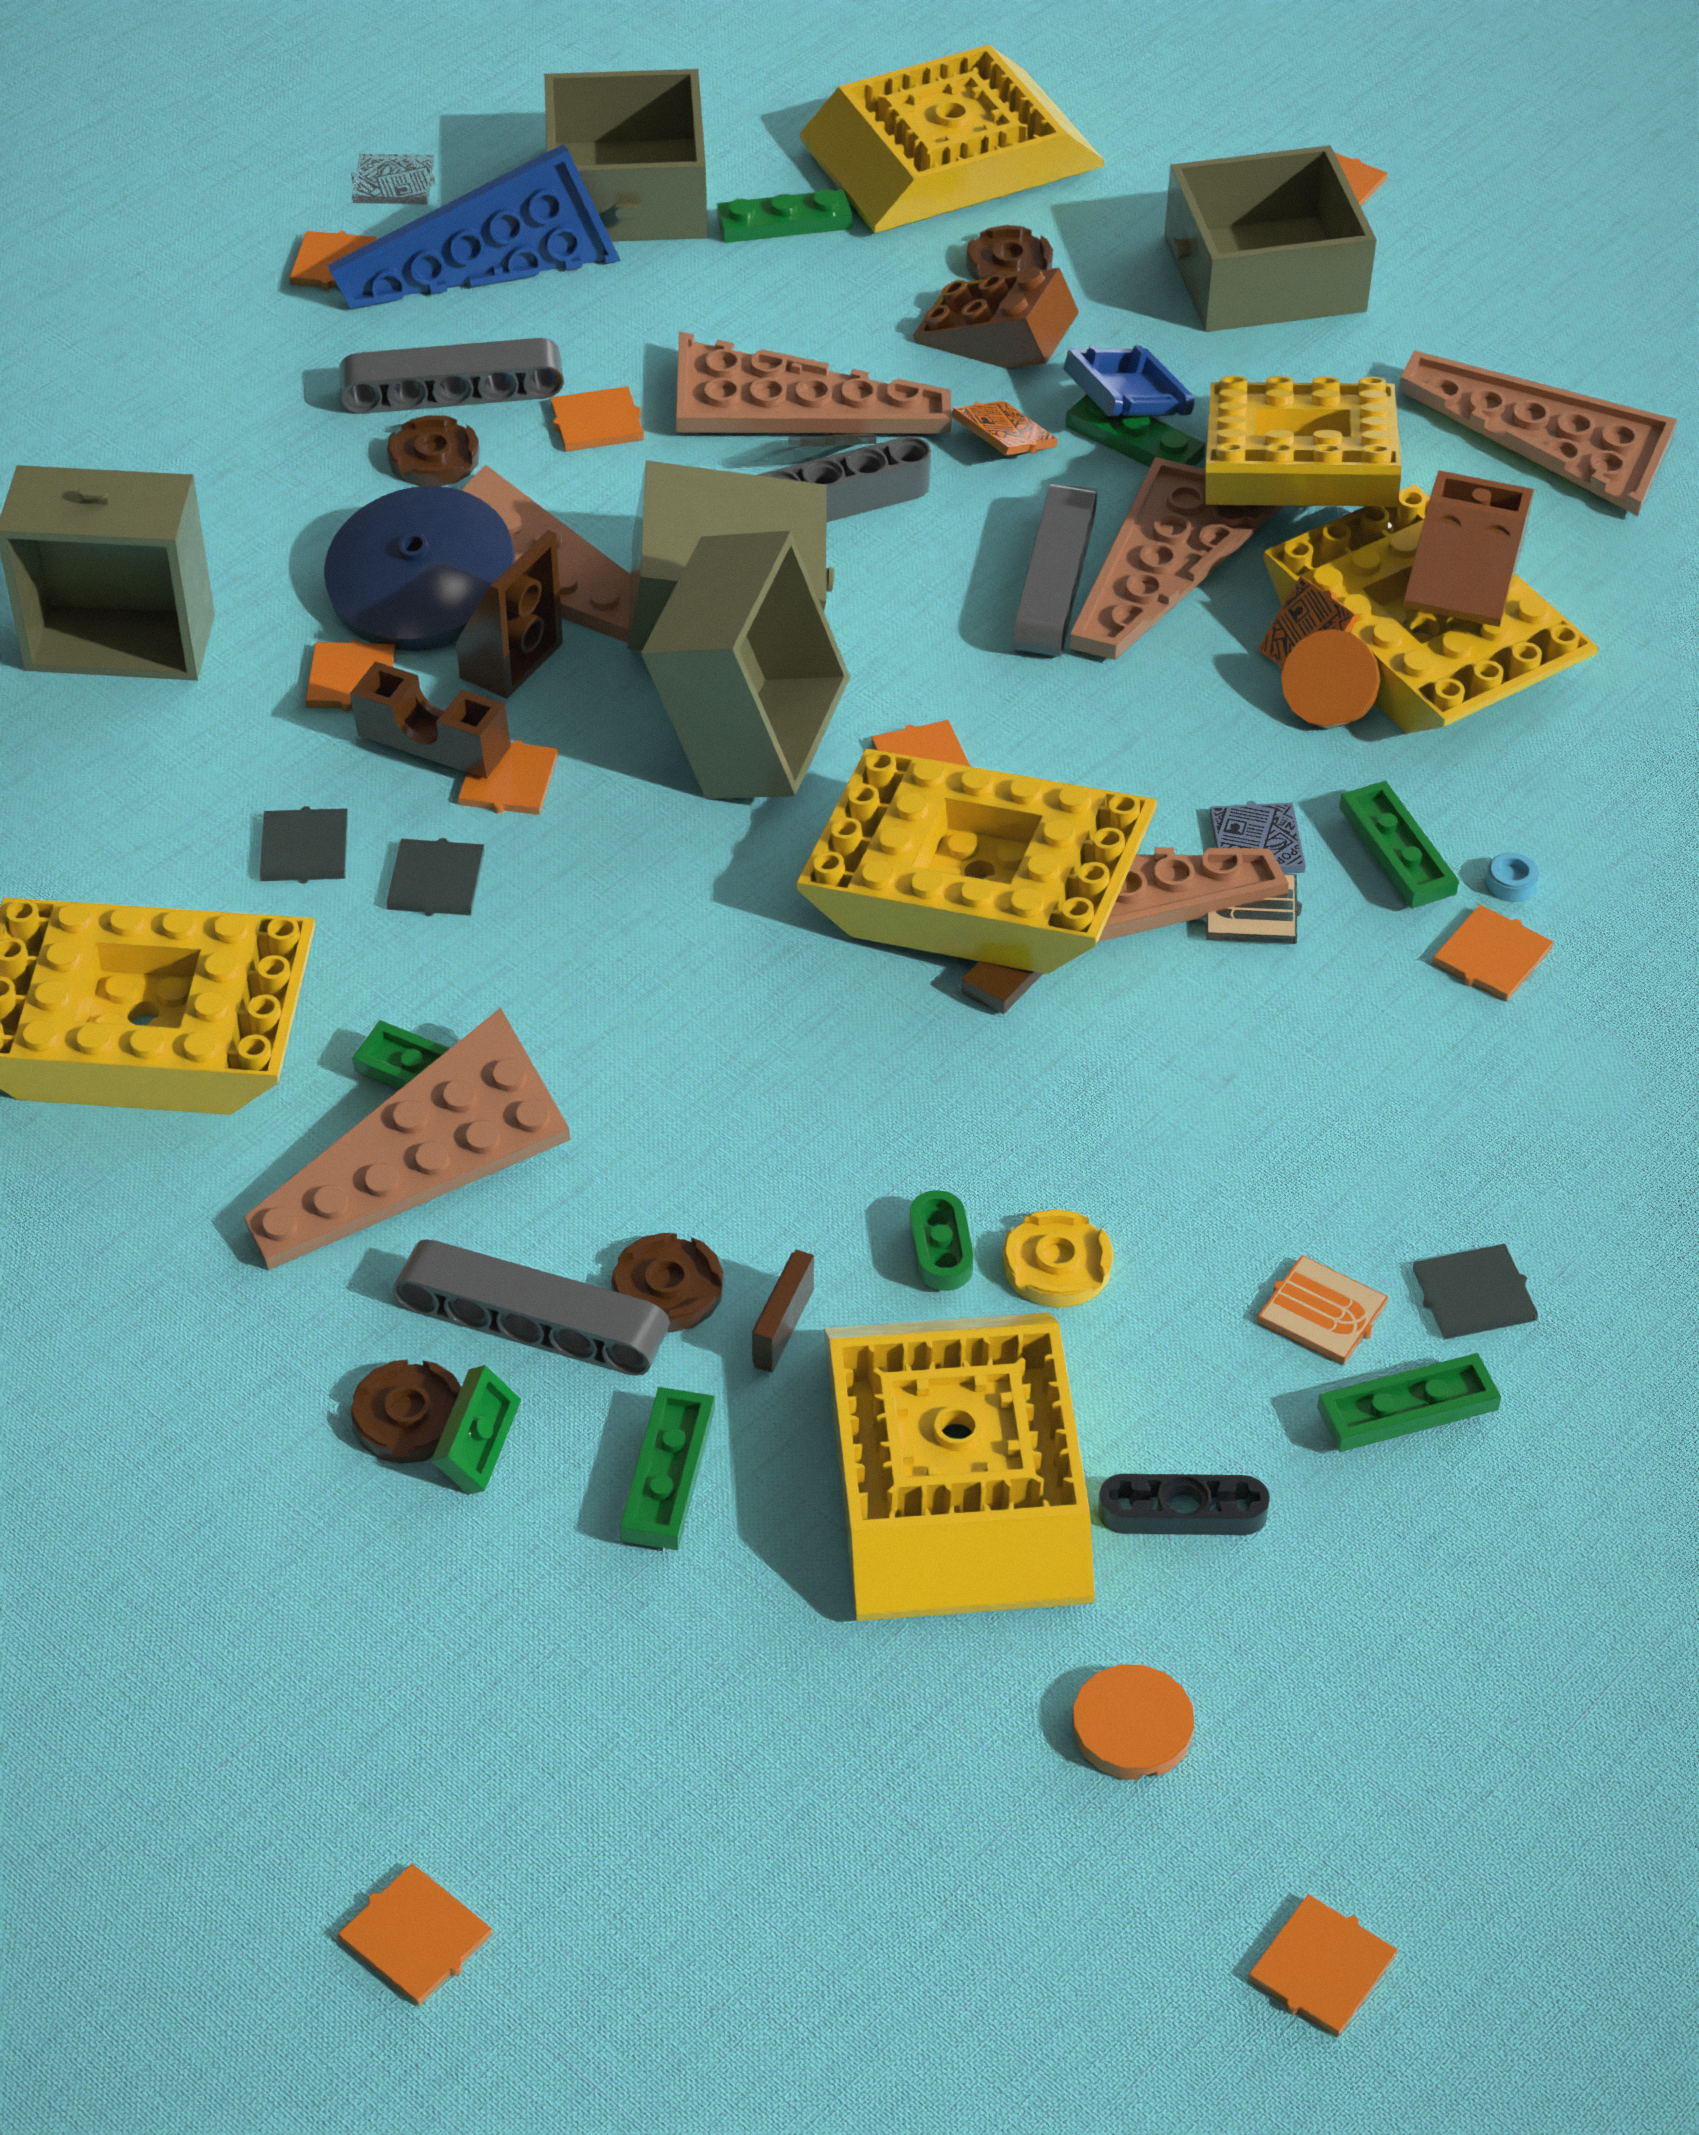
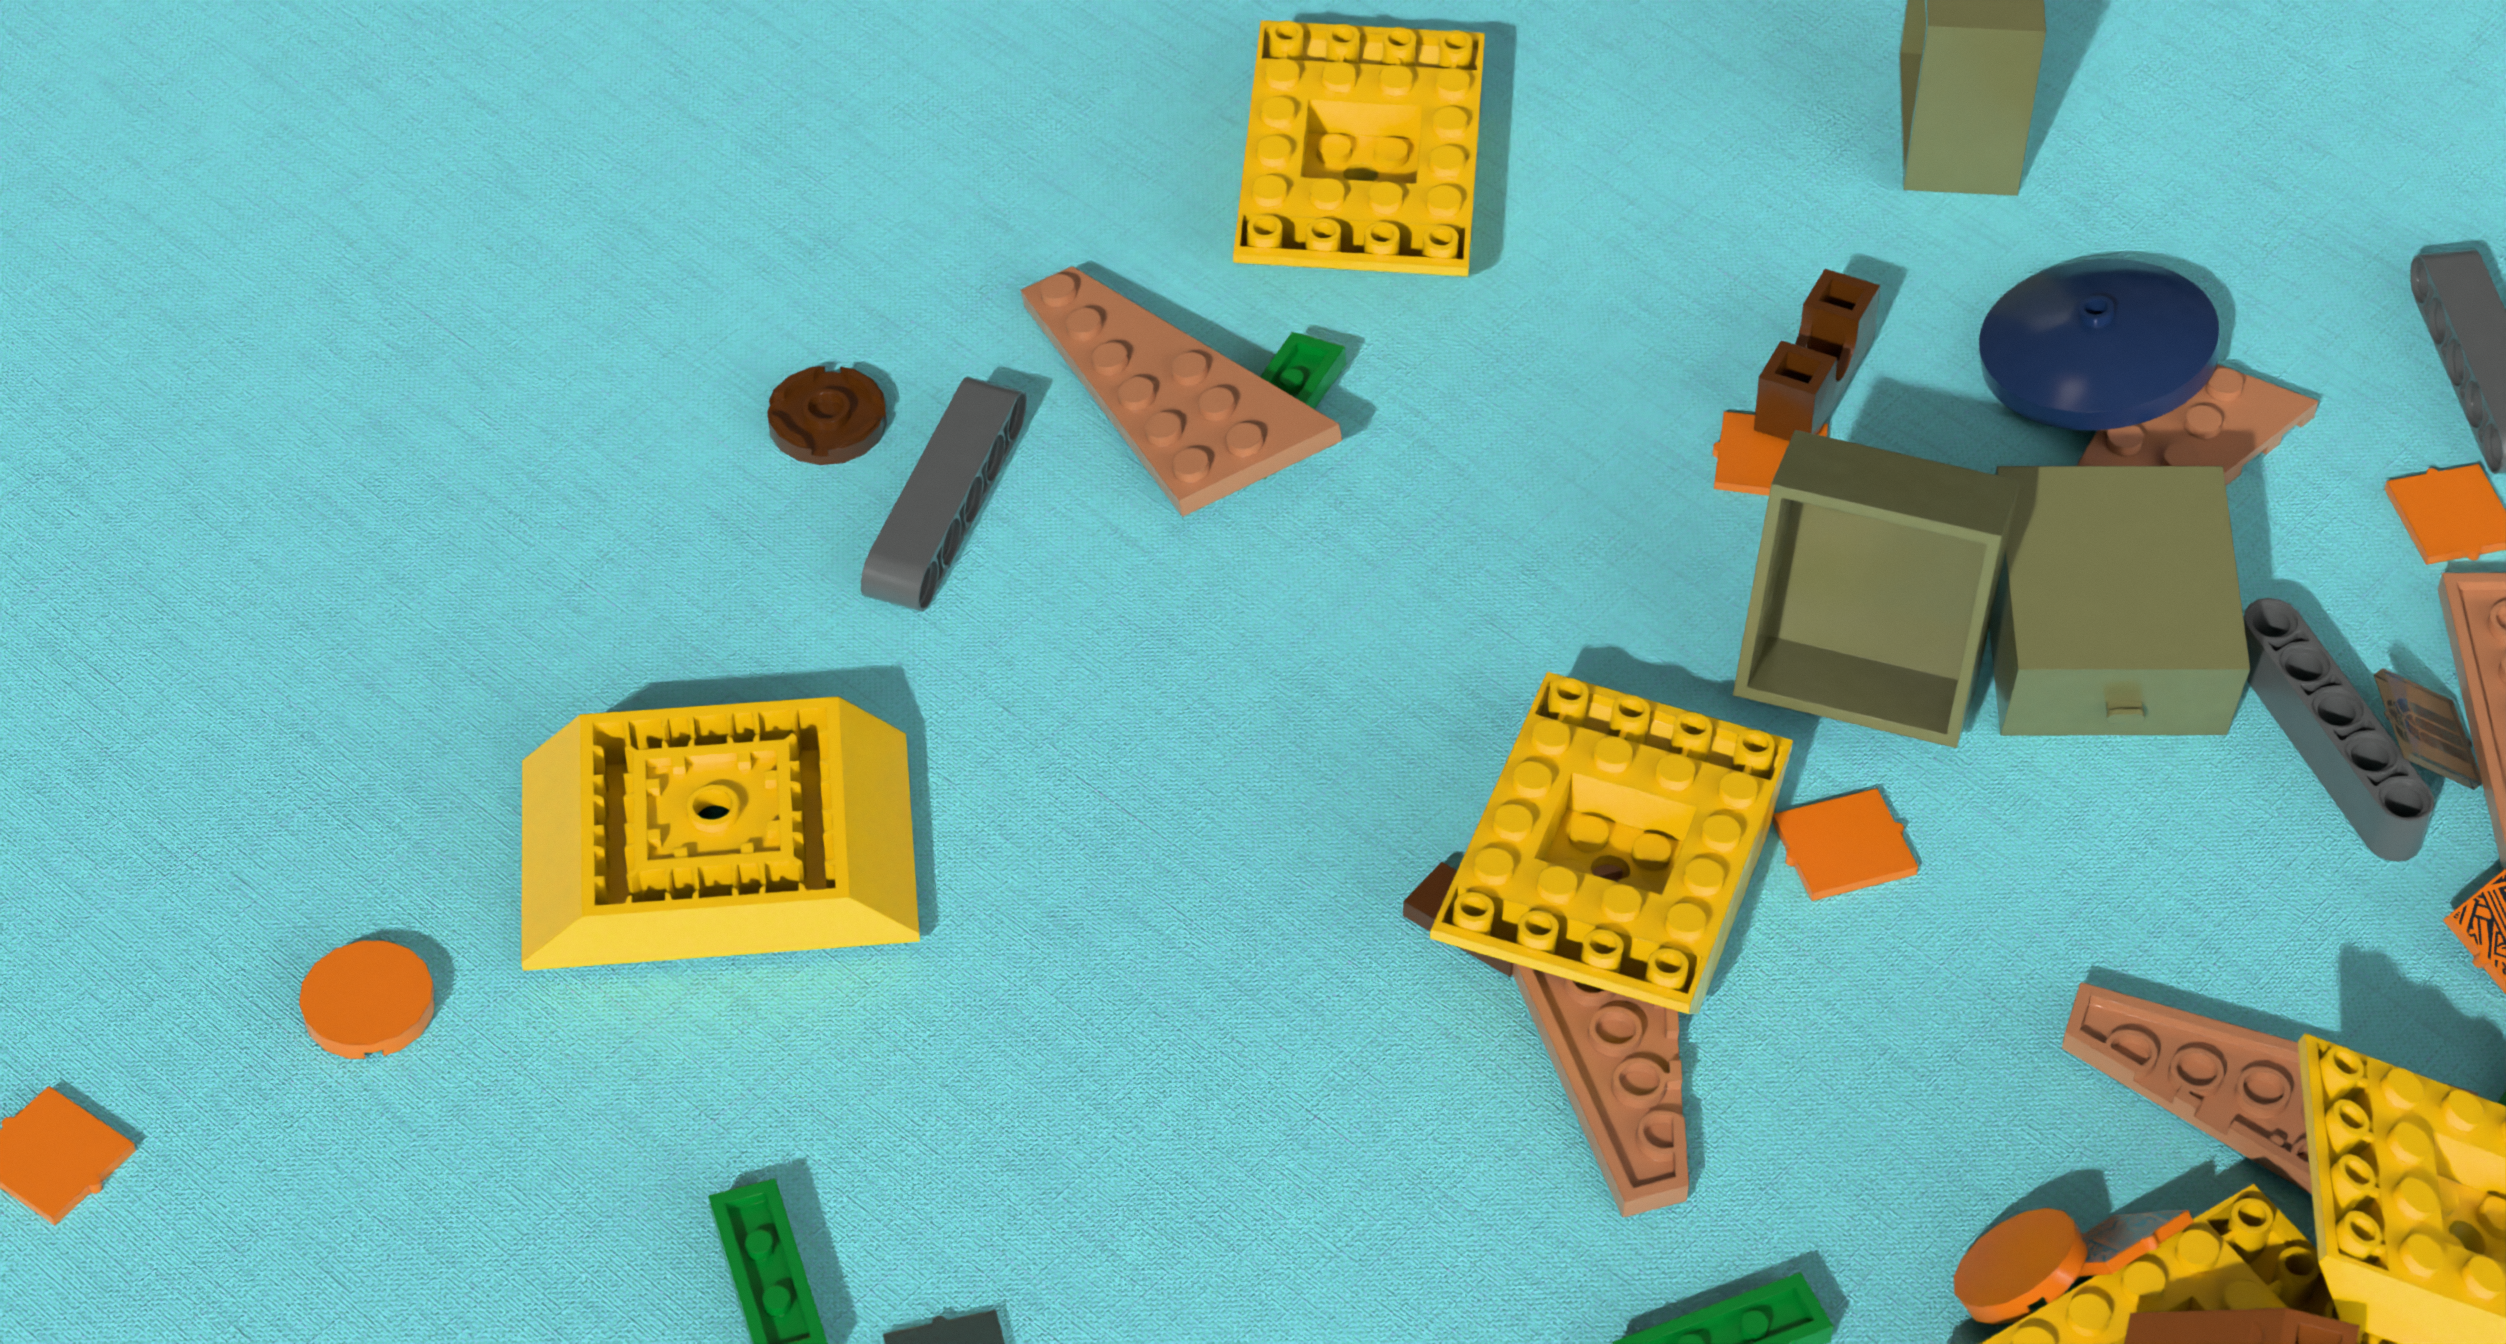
camera: 90 degrees right, 0 degrees up
(304, 844) = (1640, 291): clear smoke piece -> none
(339, 668) = (1927, 312): orange piece -> none
(415, 1934) = (218, 453): orange piece -> none
(433, 451) = (2346, 360): reddish brown tile -> none
(435, 877) = (1598, 401): clear smoke piece -> none
(476, 1430) = (782, 454): green plate -> none
(514, 623) = (1981, 403): reddish brown slope -> none
(667, 1468) = (727, 608): green plate -> none
(674, 1275) = (989, 612): reddish brown tile -> none
(782, 1310) = (928, 696): reddish brown tile -> none
(943, 1244) = (1030, 839): green plate -> none
(1055, 570) = (2227, 975): dark grey beam -> none
(1057, 1258) = (1013, 956): yellow tile -> none
(1201, 1487) = (657, 1079): black beam -> none
(1258, 921) = (1579, 1190): piece -> none
(1260, 827) = (1739, 1197): sand blue piece -> none
(1322, 1309) = (929, 1214): piece -> none

